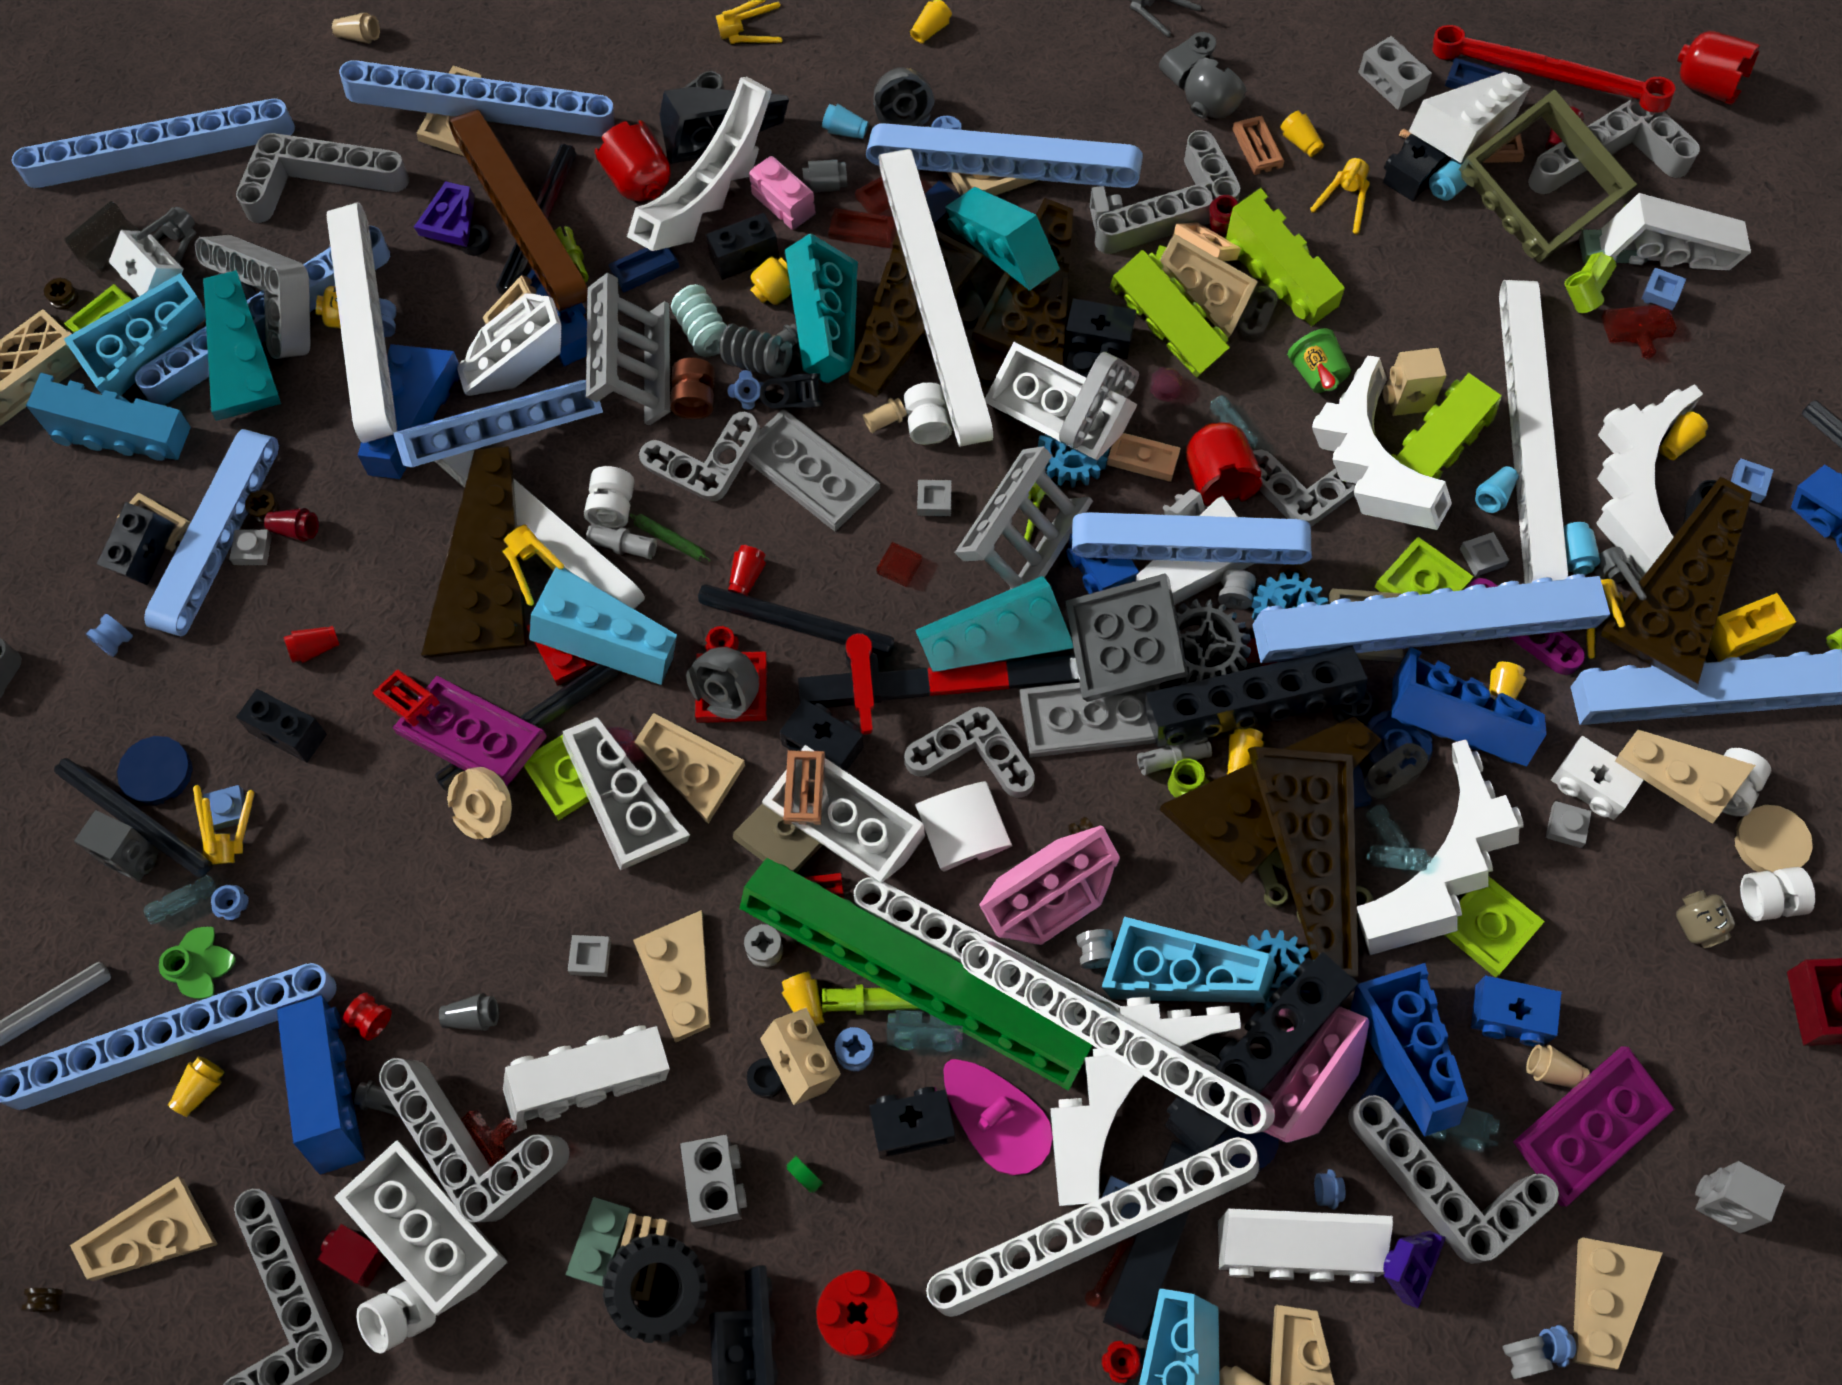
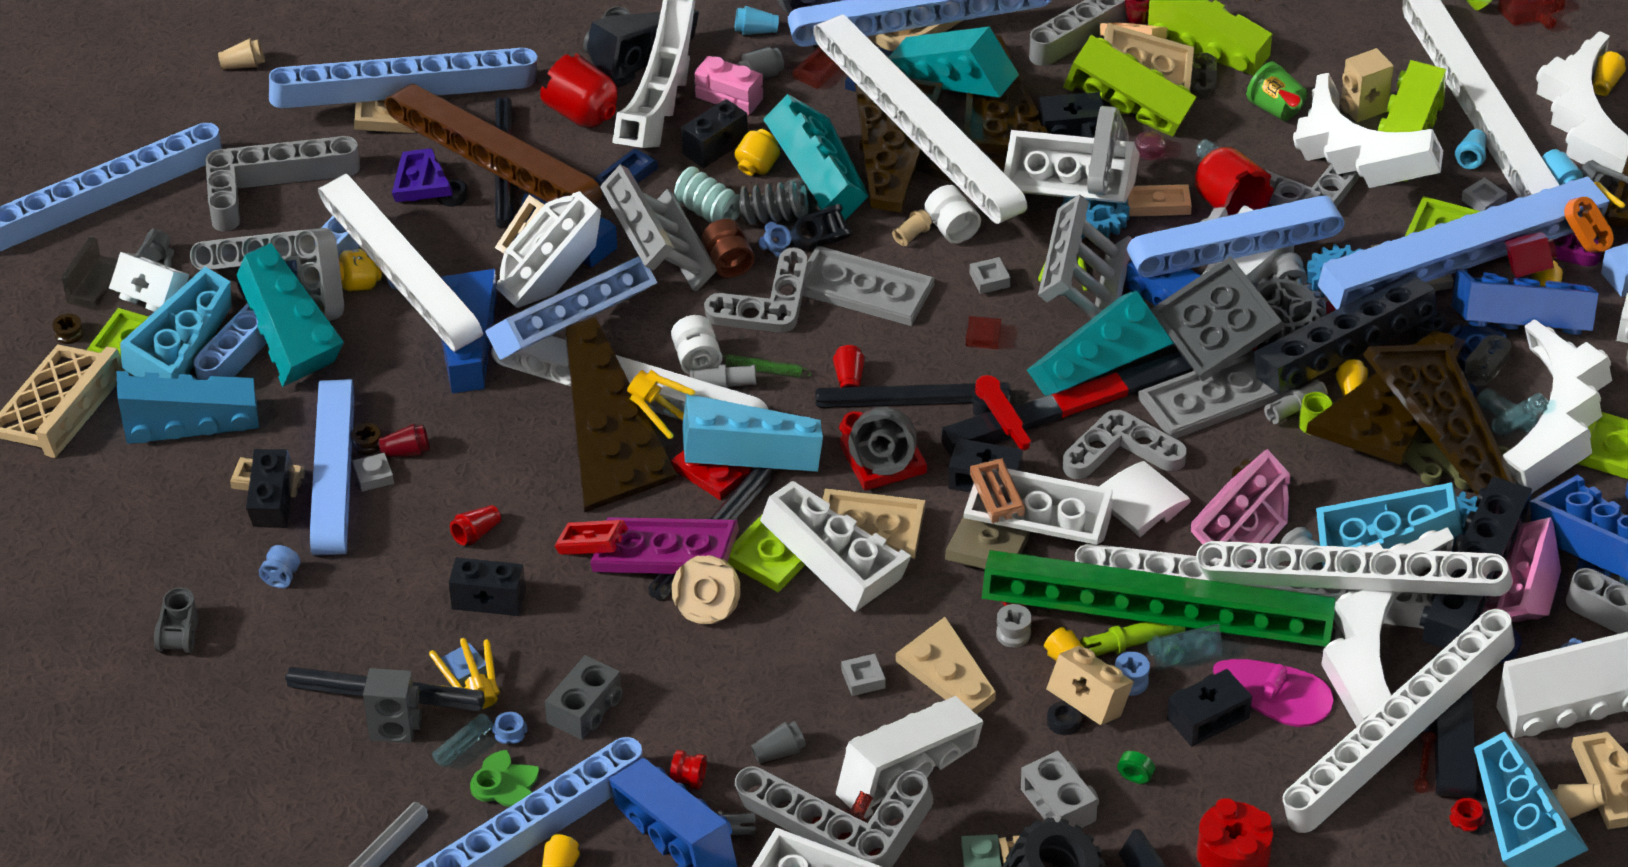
camera: 20 degrees left, 20 degrees down
(154, 770) = (380, 650): dark blue tile -> none
(306, 884) = (584, 697): none -> dark grey brick
(861, 228) = (818, 96): clear red tile -> none
(1101, 204) = (1022, 27): light grey tile -> none
(1494, 658) = (1530, 254): none -> dark red brick
(1582, 636) = (1589, 224): none -> orange beam

